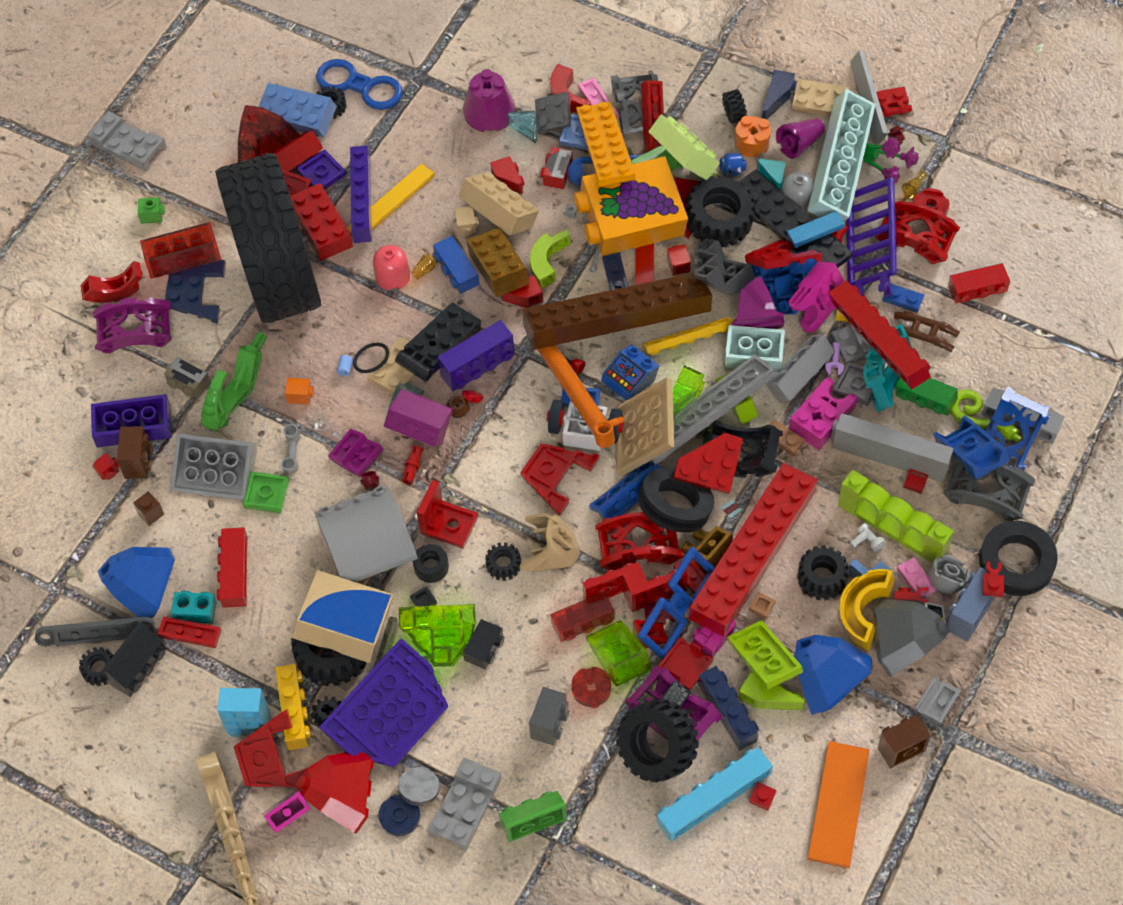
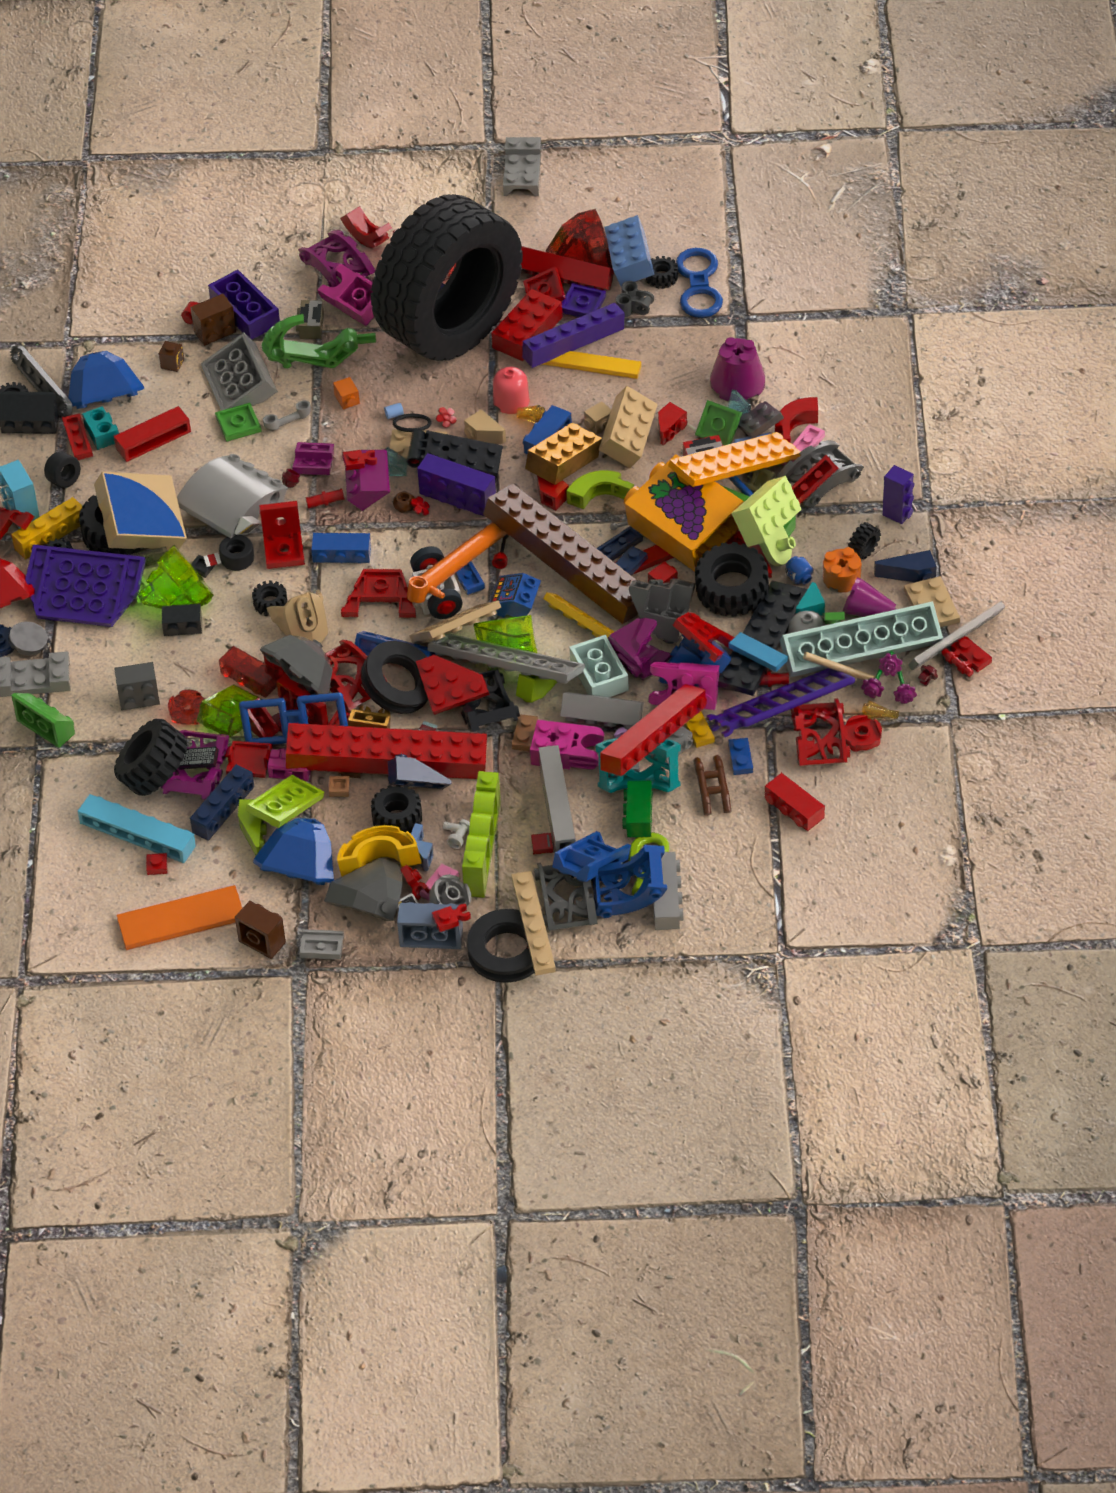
camera: 60 degrees right, 10 degrees down
(185, 332) = (351, 295): none -> dark pink brick
(226, 662) = (55, 465): none -> black tyre
(347, 135) = (633, 299): none -> dark grey piece
(381, 329) = (446, 417): none -> red plant
(403, 414) = (357, 459): none -> red plate
(416, 534) = (246, 525): none -> white slope
(418, 307) = (484, 428): none -> tan slope
(425, 587) = (212, 559): none -> sticker
(482, 478) = (341, 548): none -> blue brick
(535, 141) = (718, 421): none -> bright green tile
(631, 562) = (301, 661): none -> dark grey brick
(644, 271) = (632, 560): none -> dark blue plate
(708, 59) = (898, 494): none -> dark purple brick
(798, 539) = (414, 773): none -> slope
(808, 162) = (833, 617): none -> bright green hinge
(865, 182) = (836, 666): none -> tan bar
(1015, 524) = (533, 923): none -> tan plate

